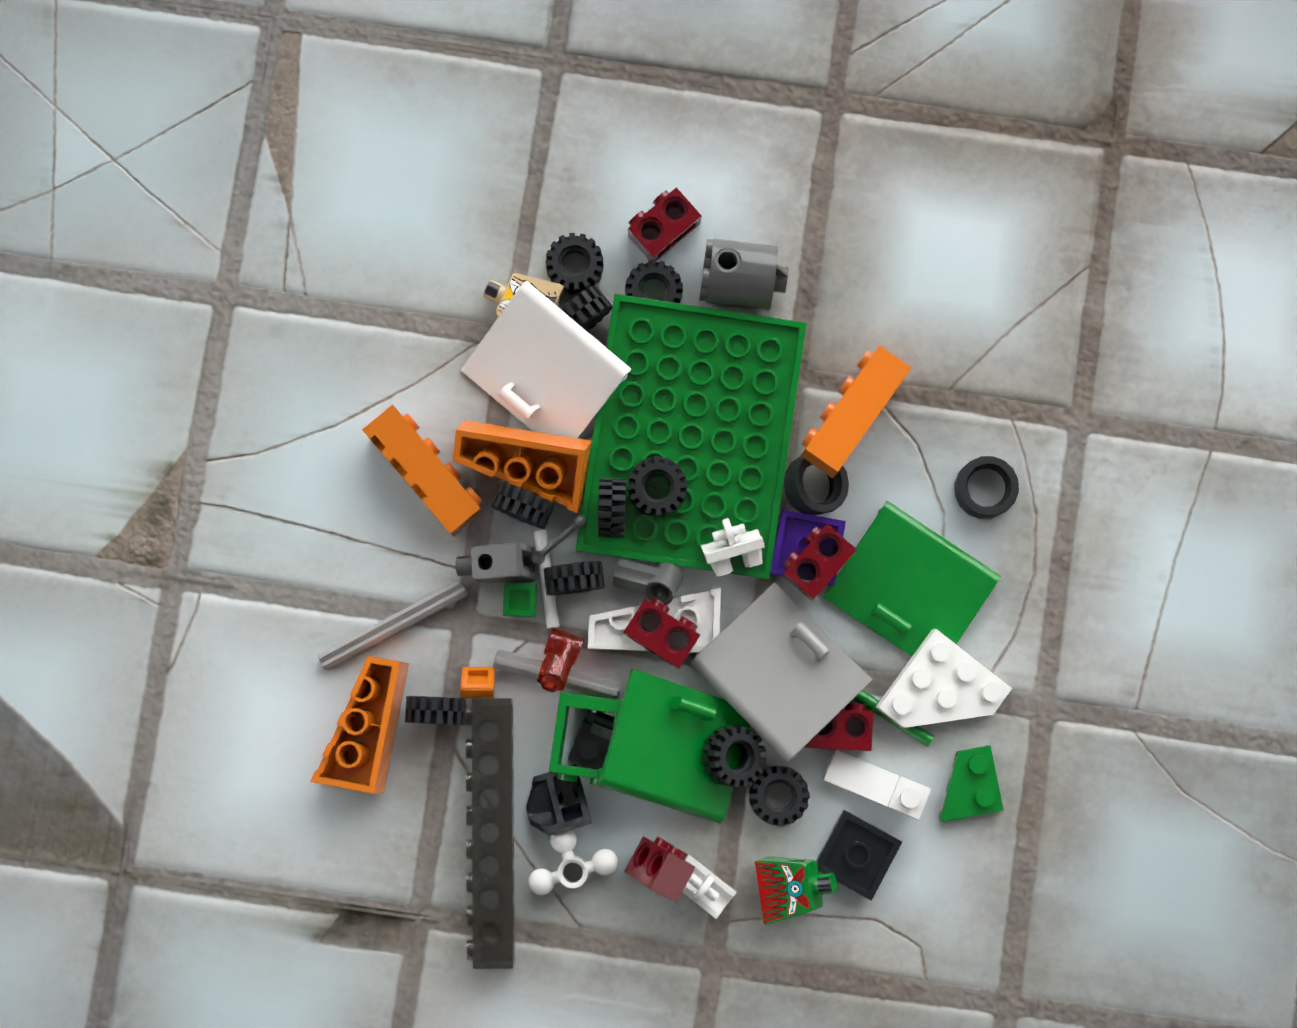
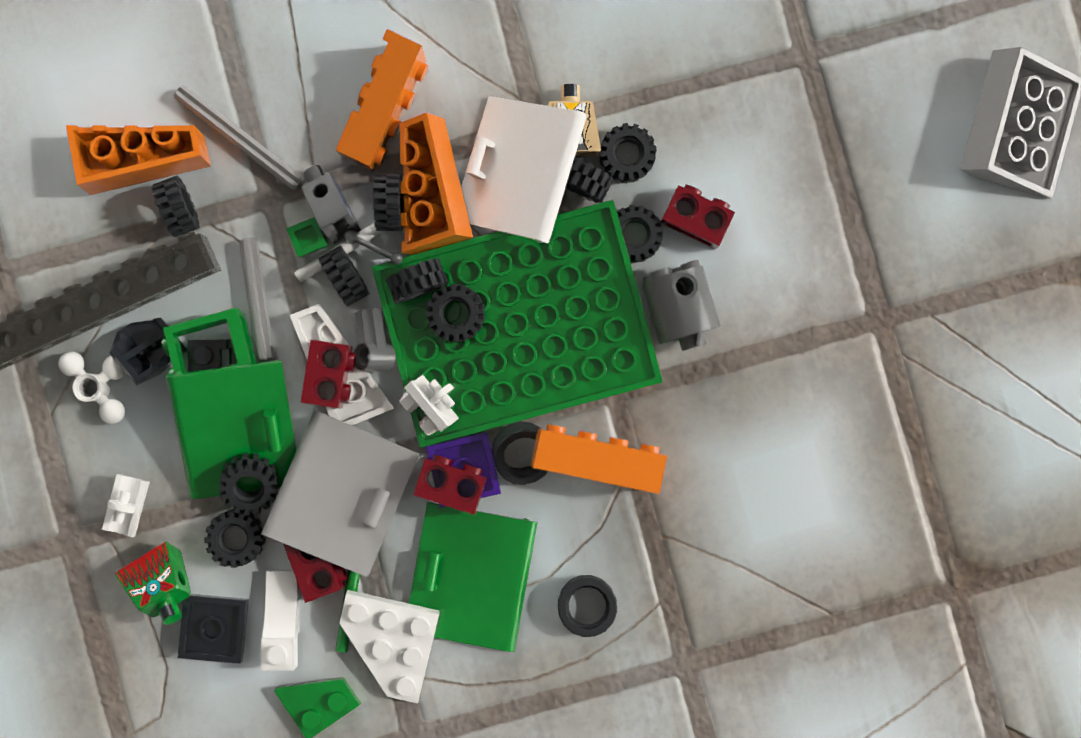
camera: 70 degrees right, 5 degrees up
(477, 682) = (219, 232): orange tile -> none
(560, 655) = (272, 294): clear red piece -> none
(660, 867) = (121, 462): dark red brick -> none

